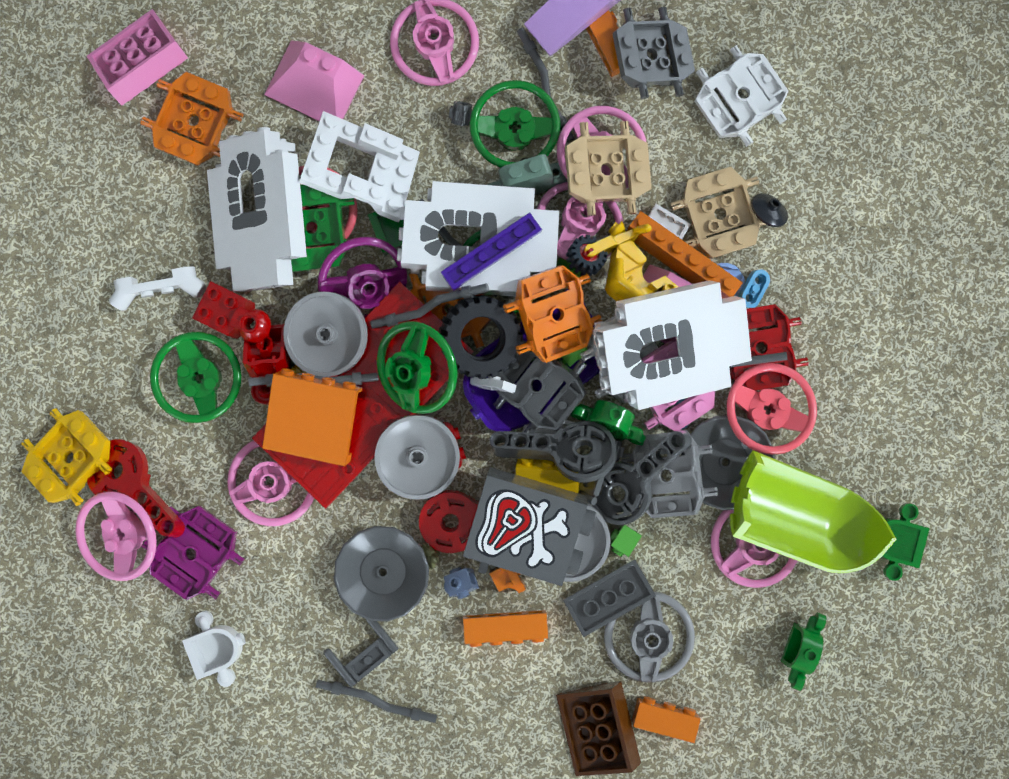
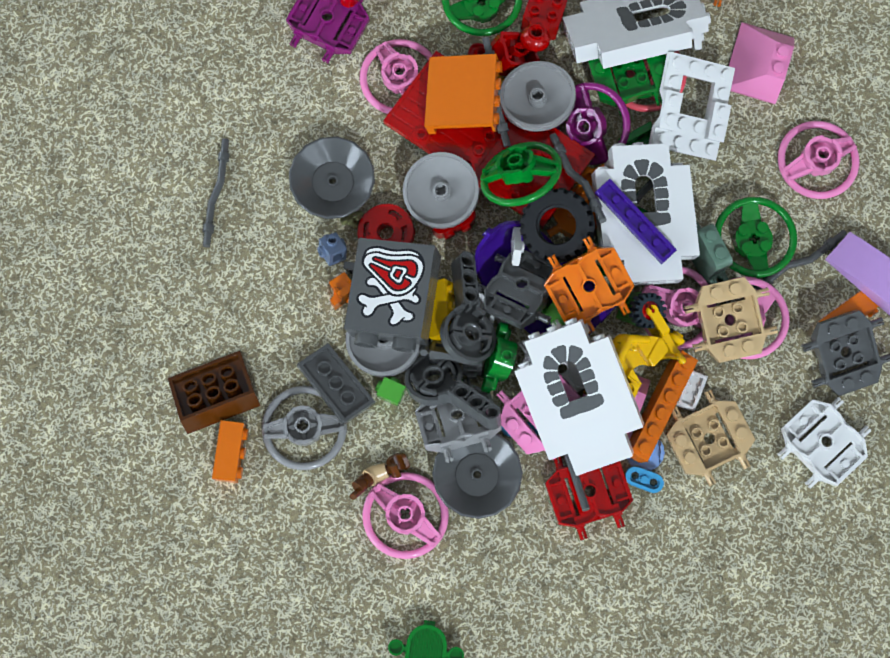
camera: 80 degrees right, 10 degrees down
(214, 649) = (245, 48): white piece -> none
(367, 659) = (253, 179): dark grey plate -> none
(460, 113) = (757, 188): dark grey gear -> none
(505, 627) = (296, 294): orange brick -> none
(709, 564) = (379, 472): none -> reddish brown piece
(769, 210) = (721, 482): black dish -> none
(781, 413) = (537, 492): coral piece -> none
(804, 649) = (311, 568): green piece -> none
(806, 517) = (437, 551): lime panel -> none

